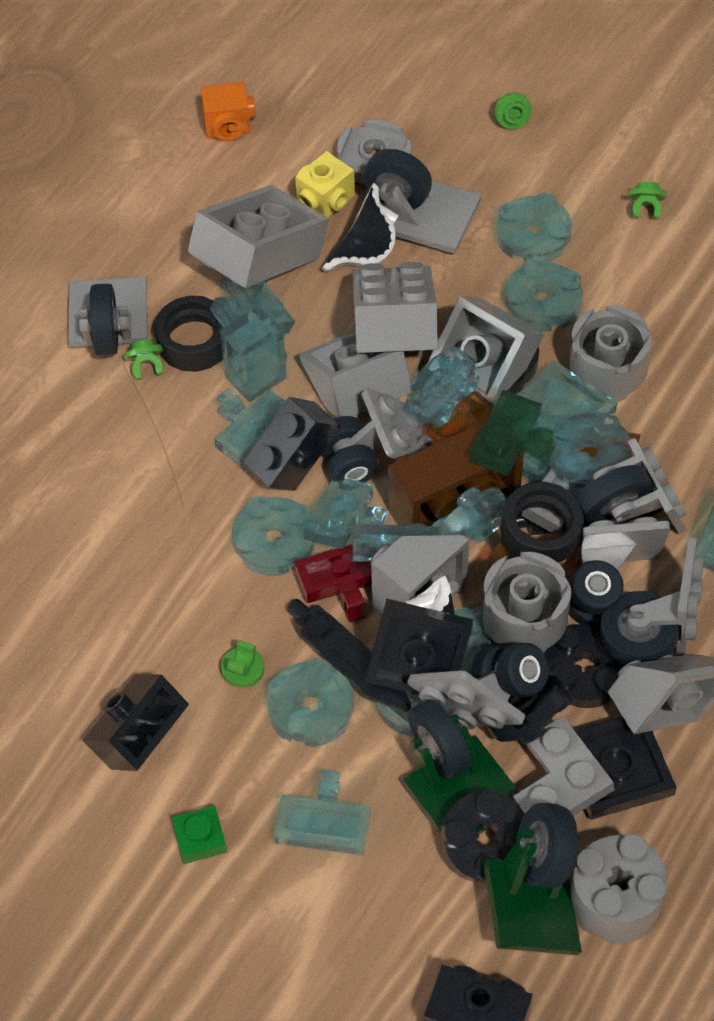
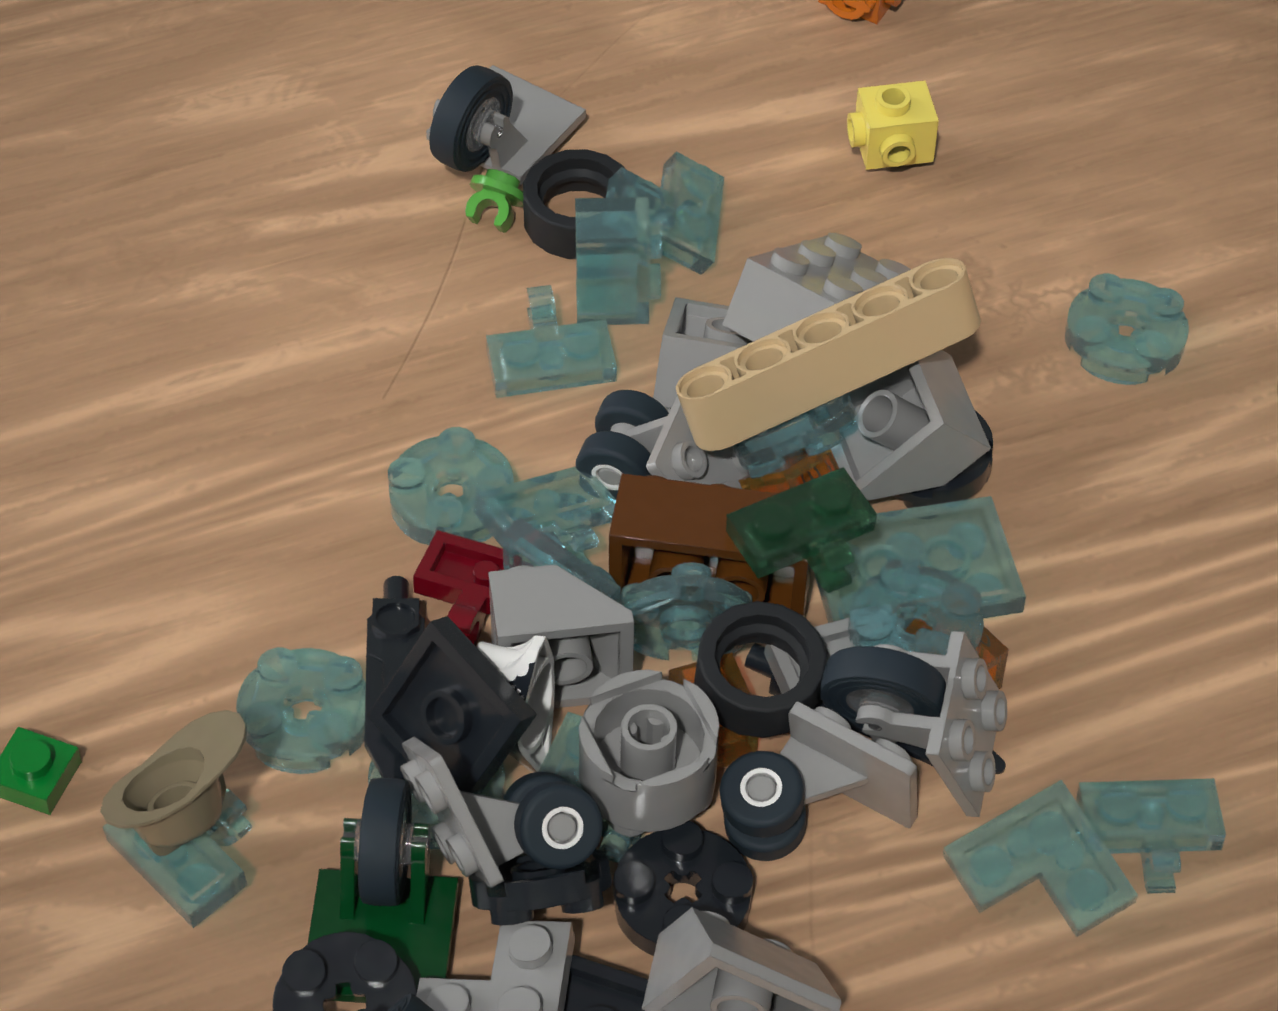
camera: 35 degrees right, 5 degrees down
(135, 722) = (75, 587): black brick -> none
(243, 665) = (267, 612): bright green plate -> none
(257, 235) = (744, 129): light grey brick -> none
(291, 444) = (554, 388): black brick -> none
(308, 780) = (180, 785): none -> dark tan piece
(369, 237) = (892, 211): black hat -> none
(372, 135) = (999, 149): light grey plate -> none
(425, 209) = (994, 213): light grey plate -> none
(441, 334) = (828, 354): none -> tan beam
(513, 110) = (1231, 172): bright green plate -> none
(549, 278) = (1065, 388): clear light blue plate -> none
(611, 350) = (1072, 528): light grey brick -> none
(651, 625) = (796, 892): plate -> none

